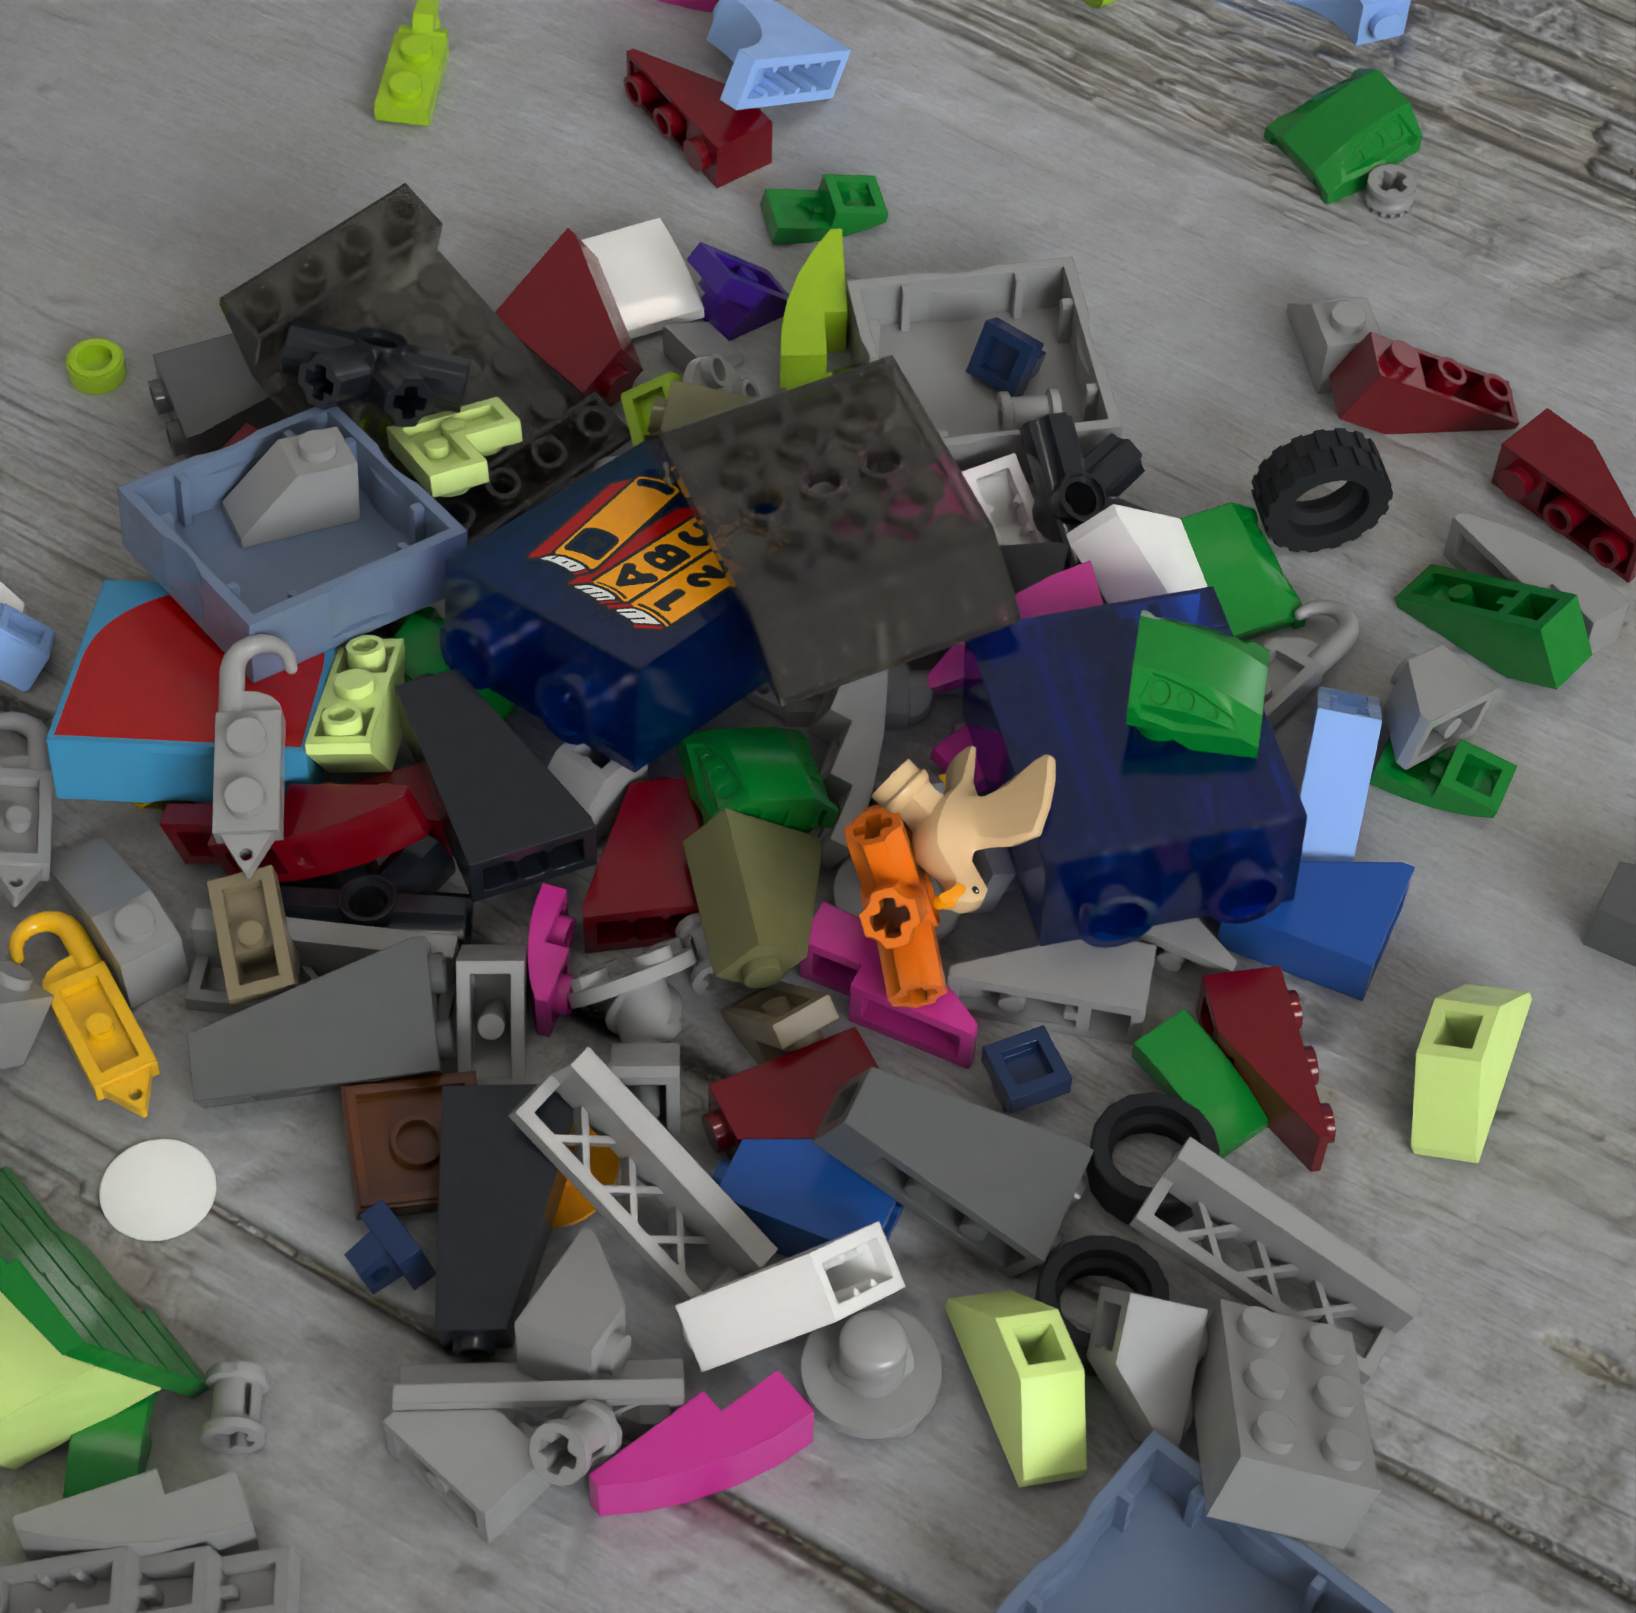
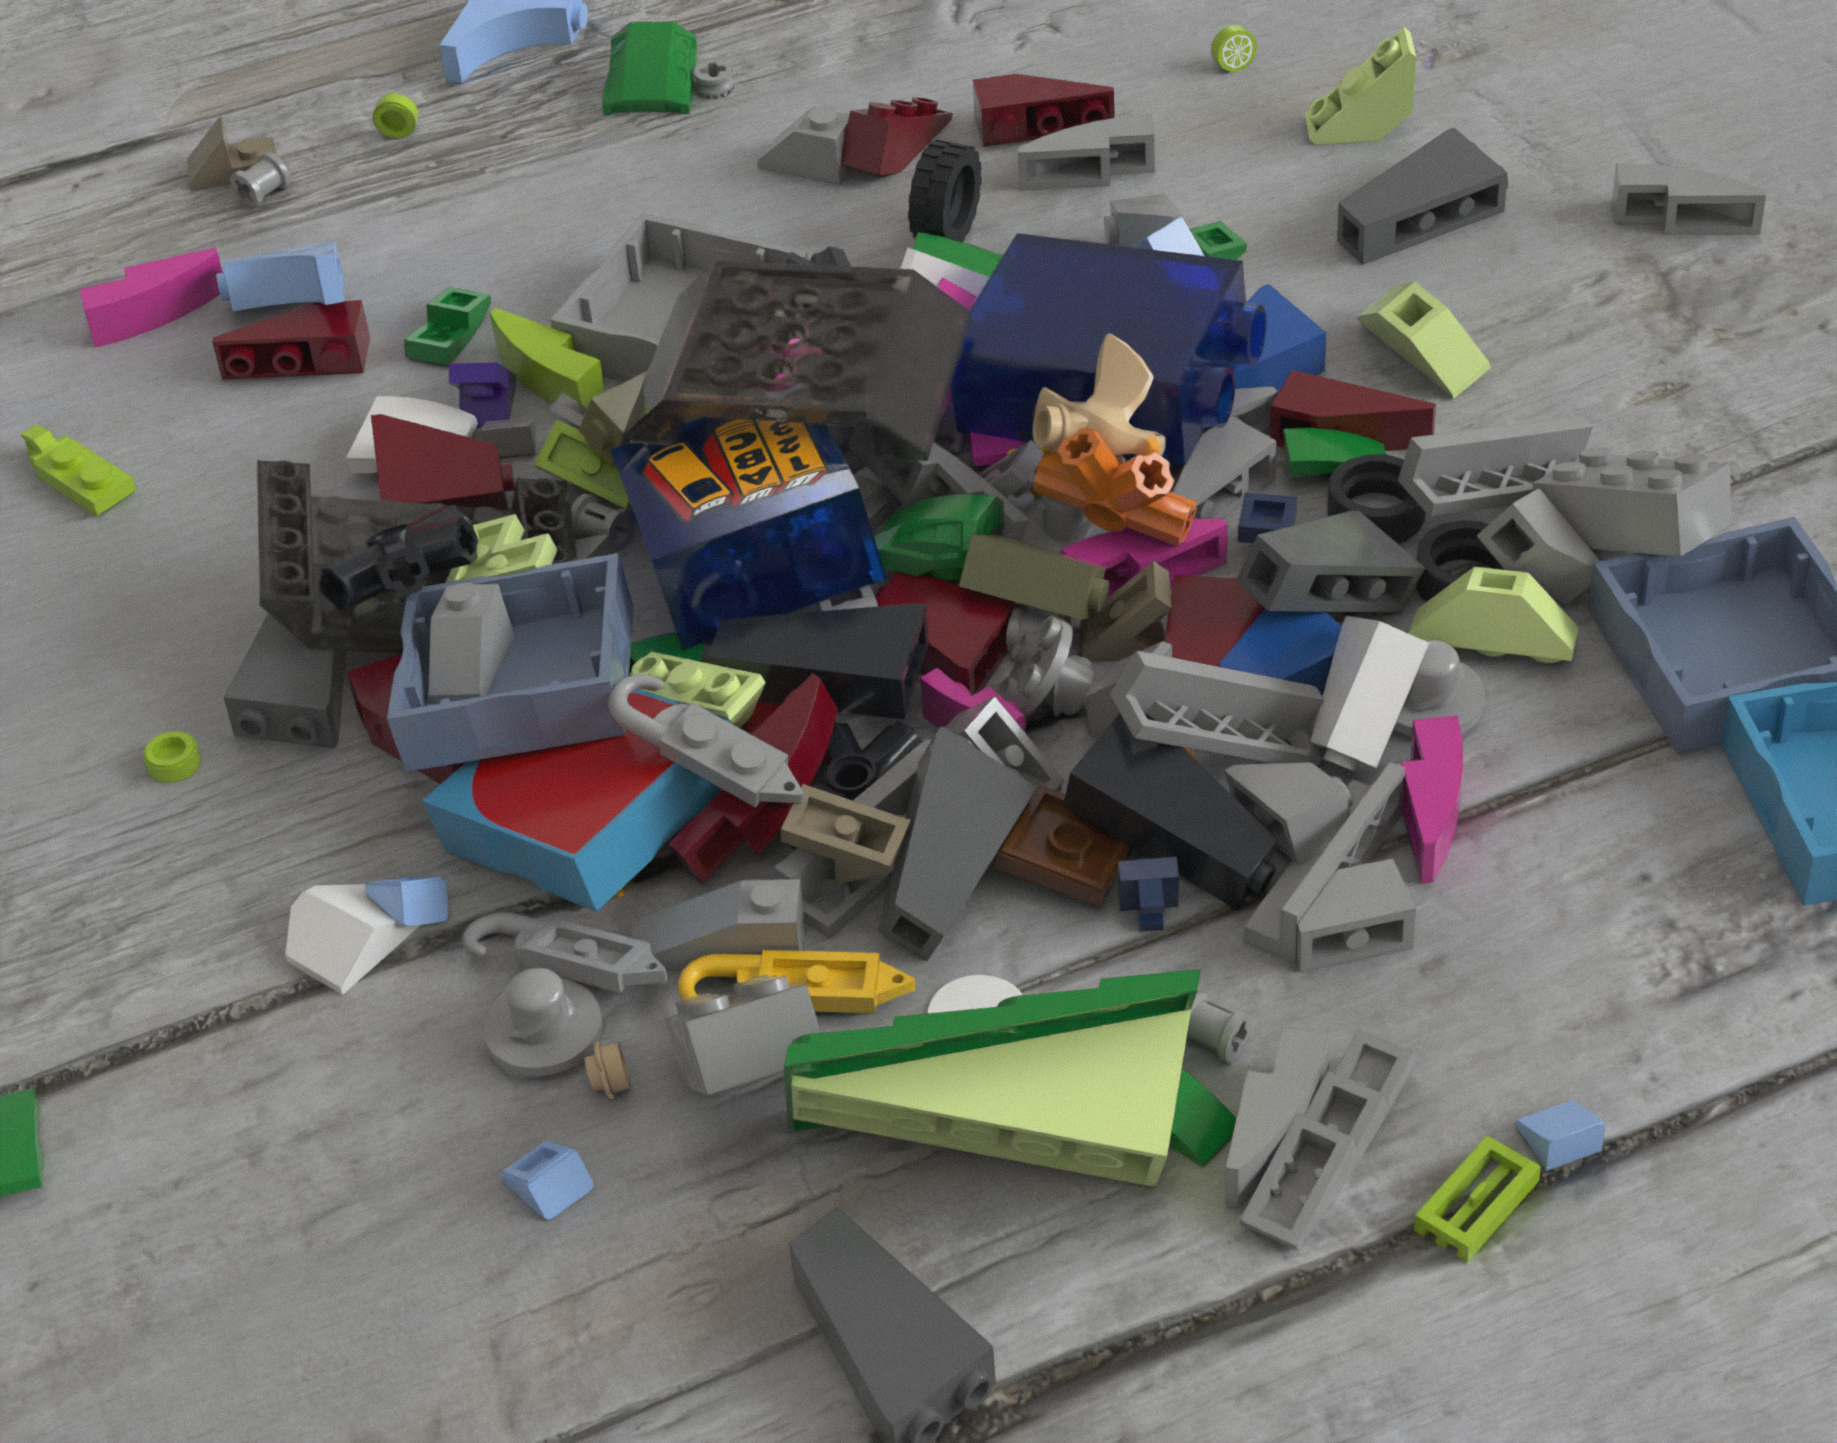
camera: 50 degrees left, 10 degrees down
(570, 1445) = (1414, 841): light grey bush -> none
(1005, 357) = (674, 279): dark blue tile -> none
(1197, 687) = (1104, 259): green slope -> none
(1506, 624) = (1119, 169): green slope -> none

